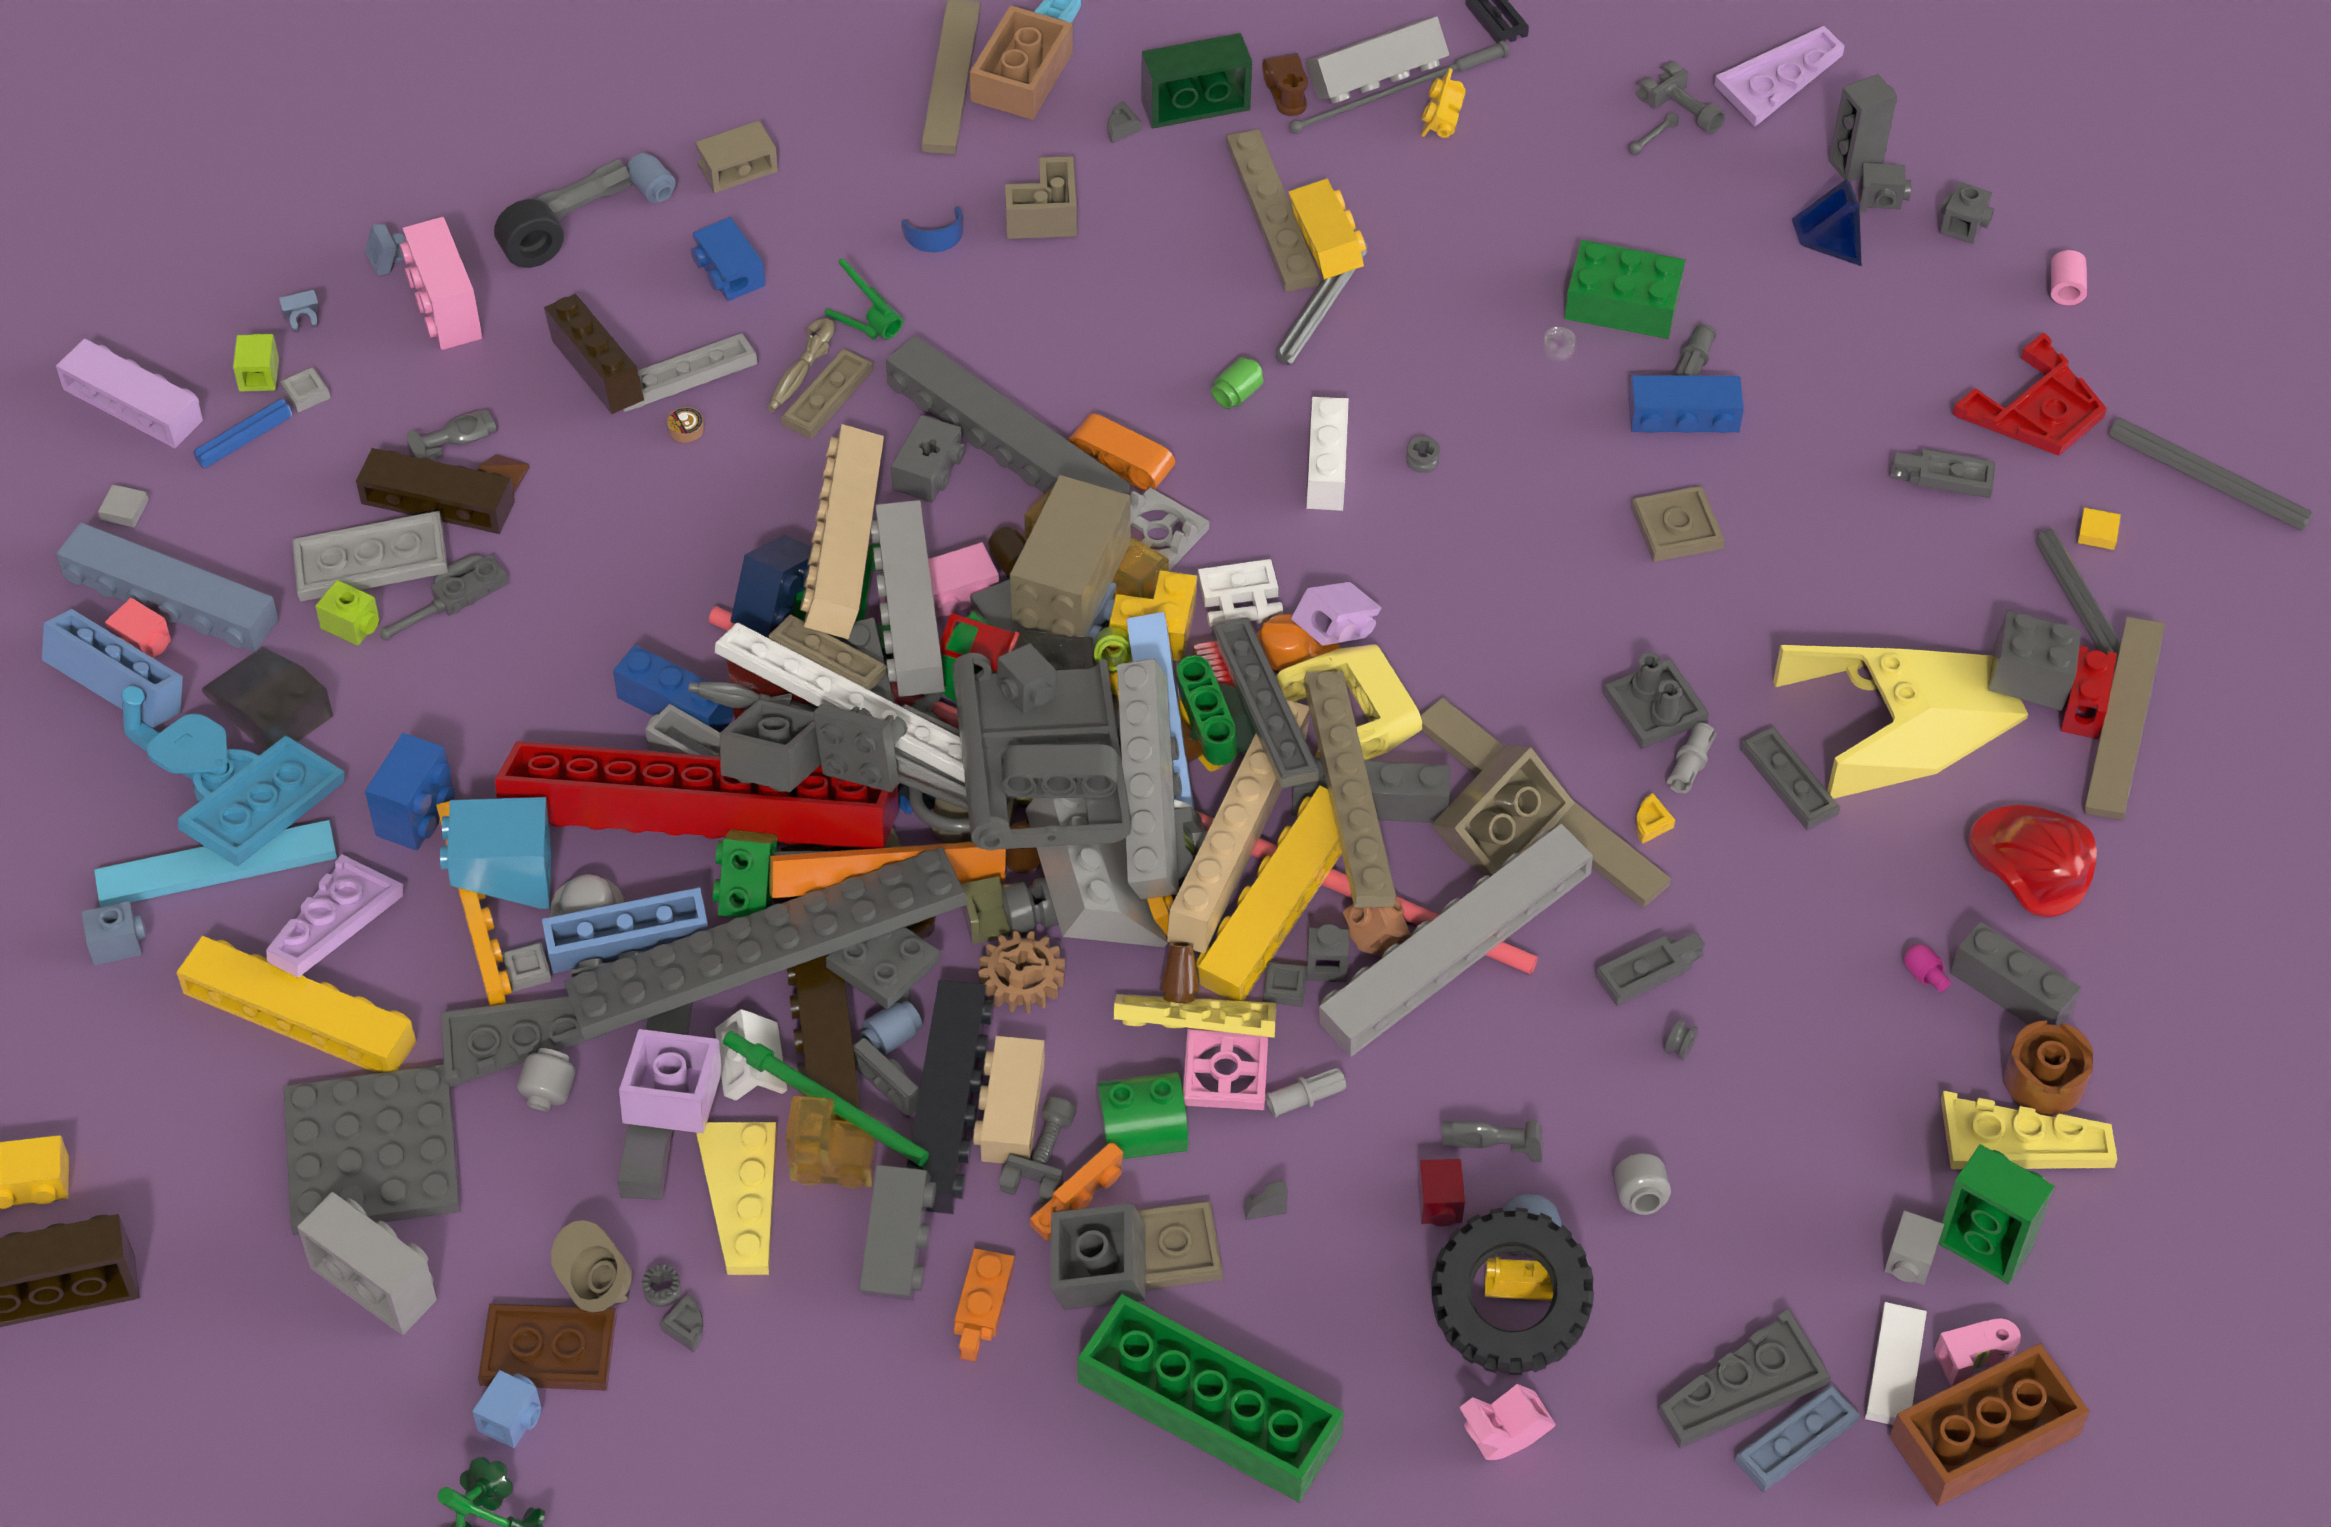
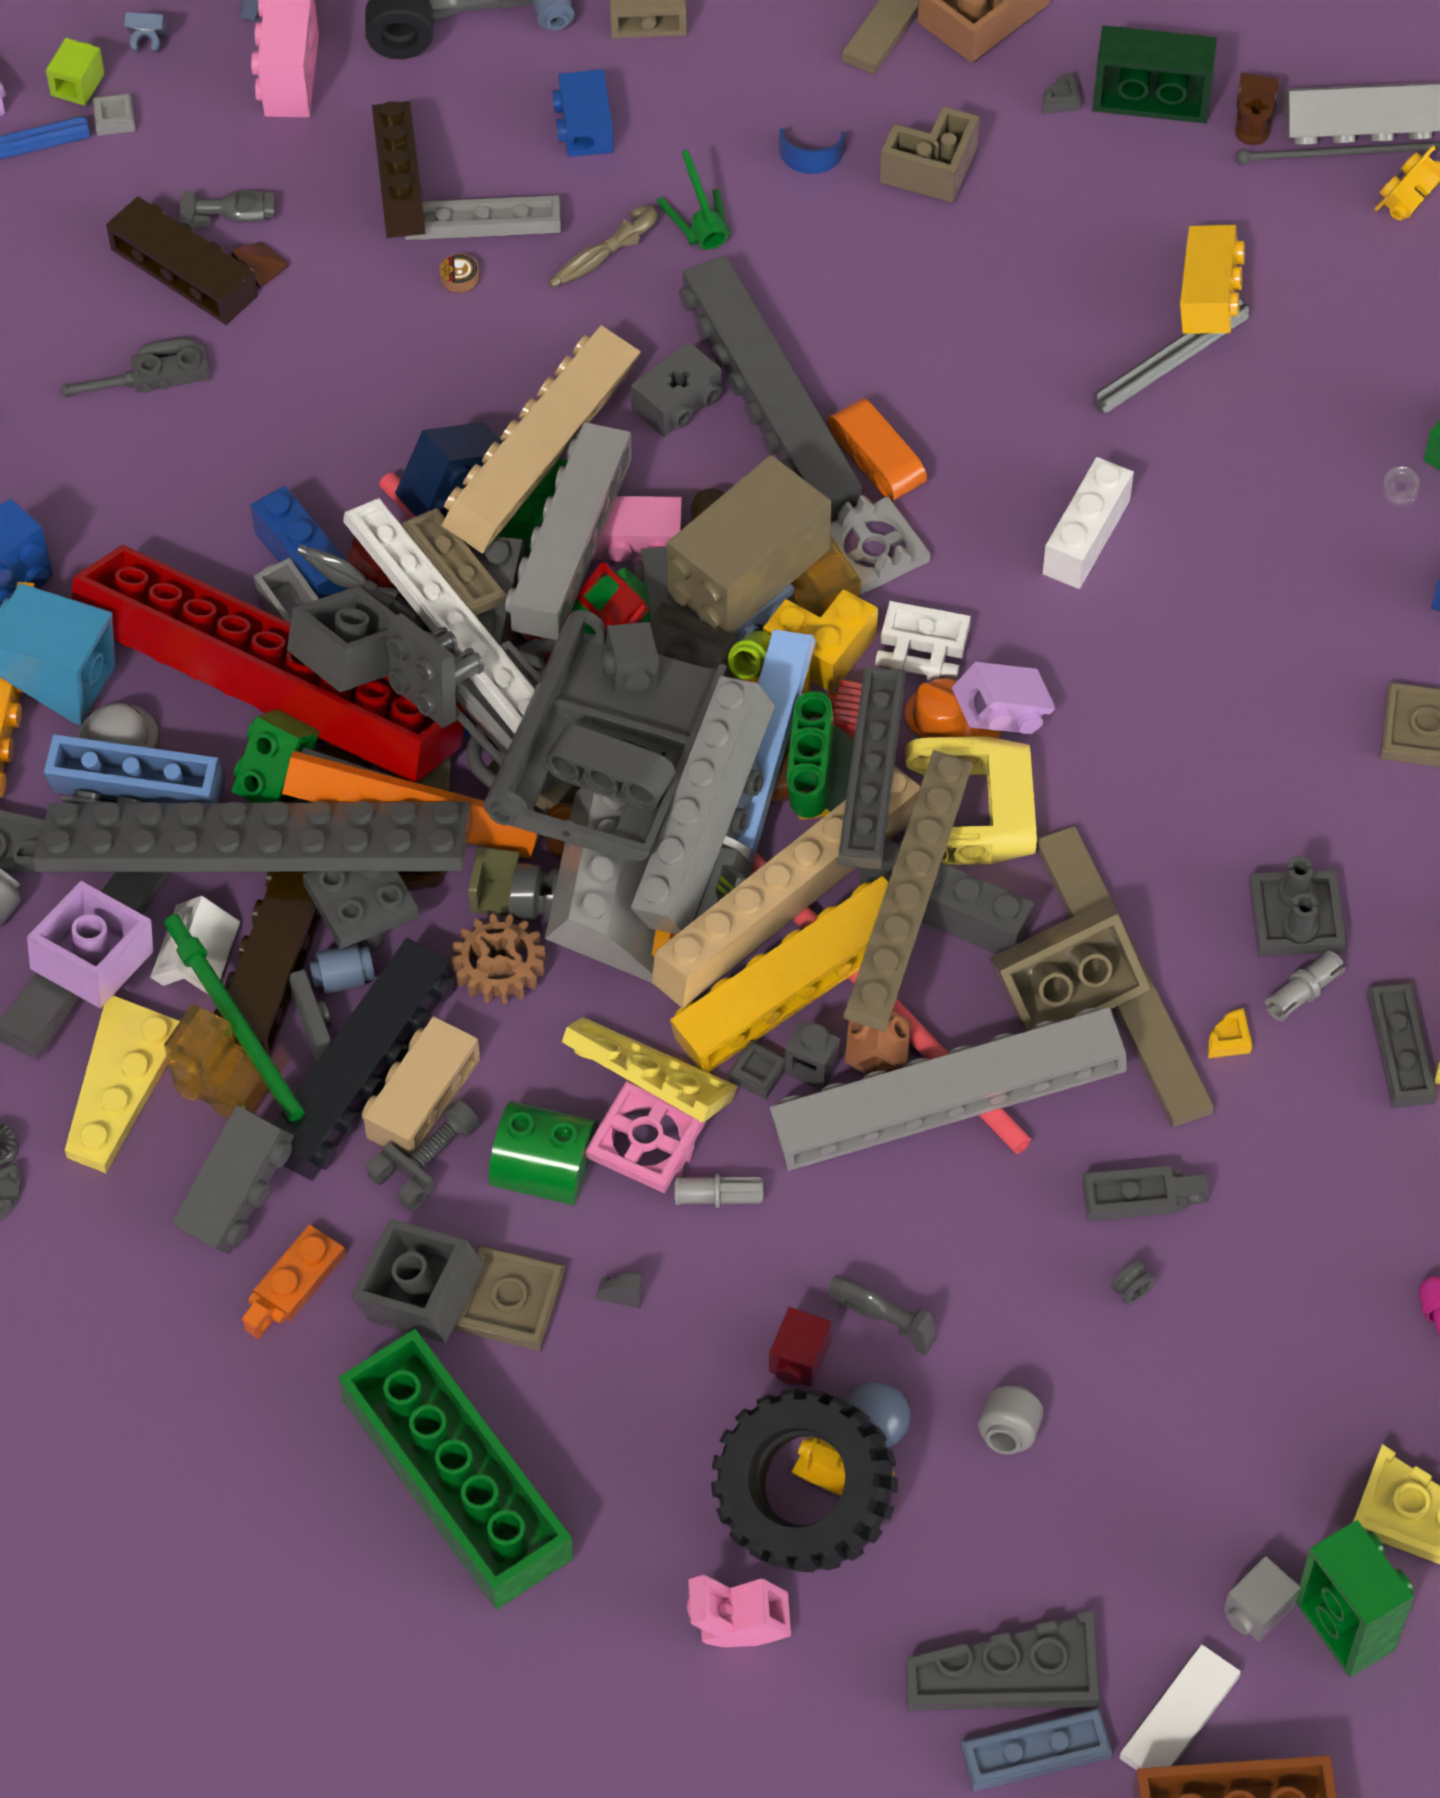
camera: 25 degrees right, 5 degrees up
(347, 613) = (37, 356): lime brick -> none
(370, 555) = (88, 306): light grey tile -> none
(526, 967) = (28, 777): light grey tile -> none
(827, 394) = (615, 287): dark tan tile -> none
(1078, 1190) = (439, 1204): orange hinge -> none
(1179, 974) = (648, 1021): reddish brown cone -> none
(1237, 383) = (1035, 415): bright green brick -> none
(1272, 210) = (1169, 239): dark tan plate -> none
(1422, 464) = (1193, 569): dark grey bush -> none
(1975, 1347) = (1273, 1730): bright pink leg -> none

